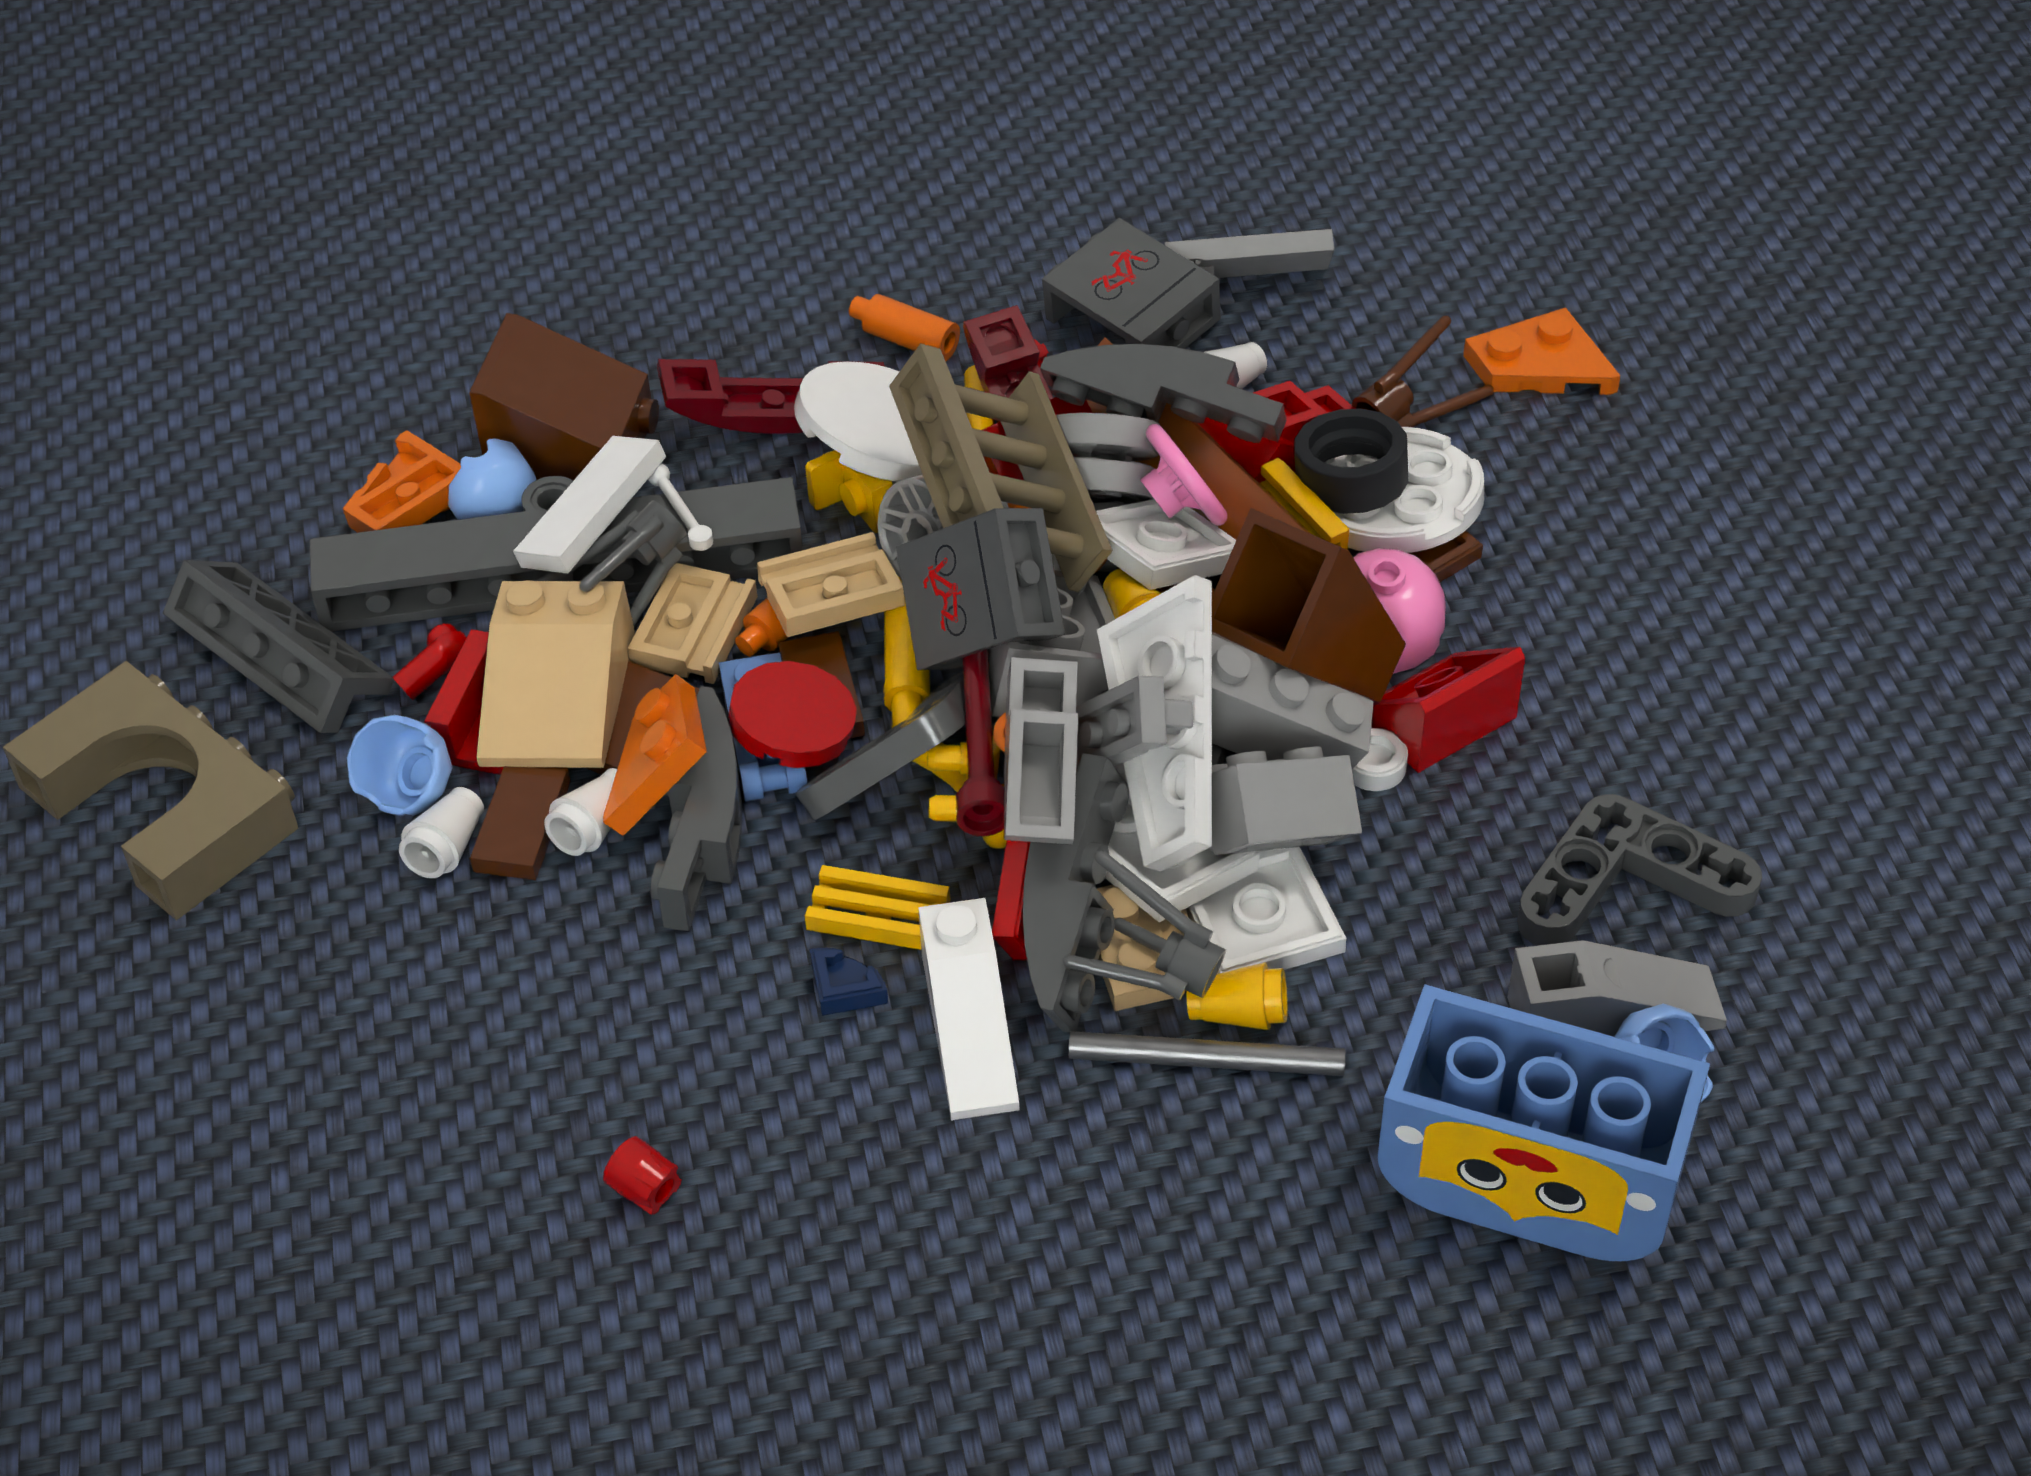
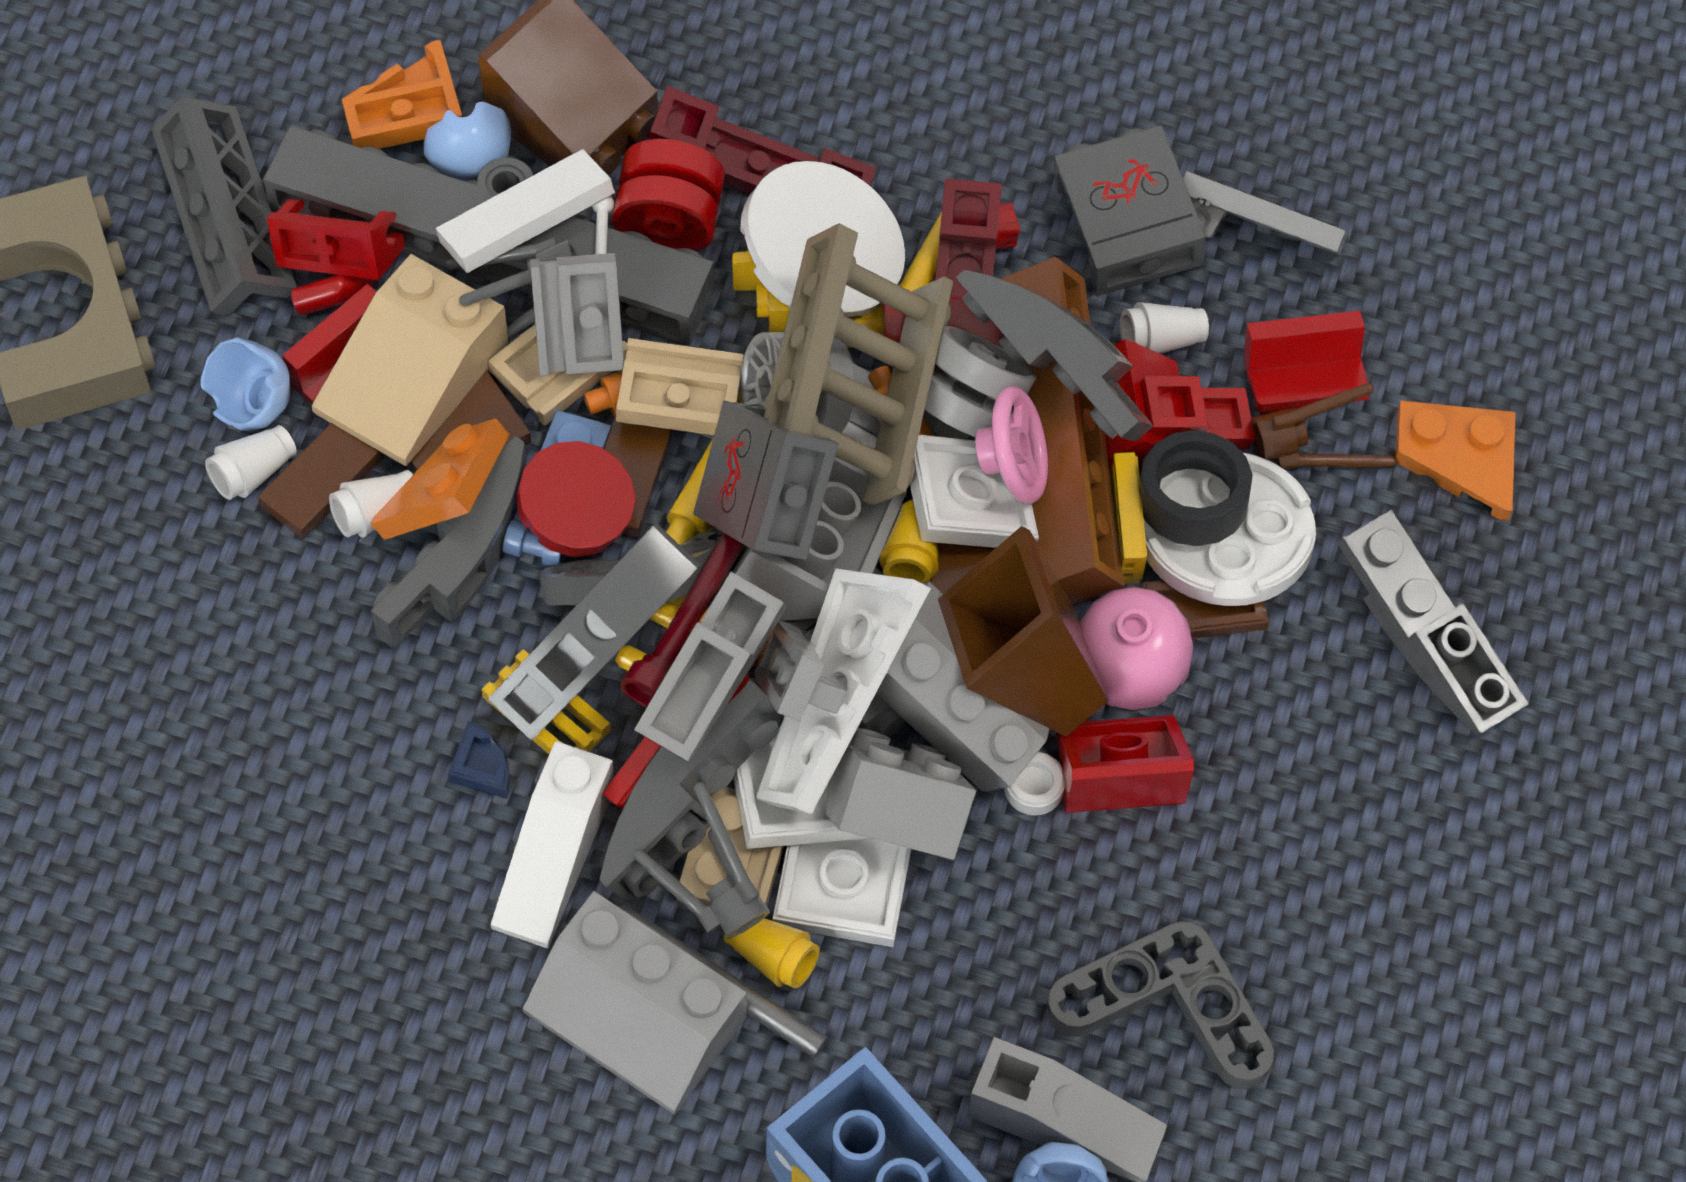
camera: 25 degrees right, 15 degrees up
(412, 613) = (333, 243): none -> red hinge
(641, 1174) = (226, 853): red hose -> none
(699, 557) = (577, 314): none -> light grey plate
(713, 439) = (669, 193): none -> red wheel
(899, 791) = (594, 631): none -> dark grey slope
(905, 324) = (920, 137): orange cylinder -> none
(1144, 1102) = (635, 1002): none -> light grey slope
(1359, 340) = (1304, 359): none -> red panel
(1639, 494) = (1428, 629): none -> slope

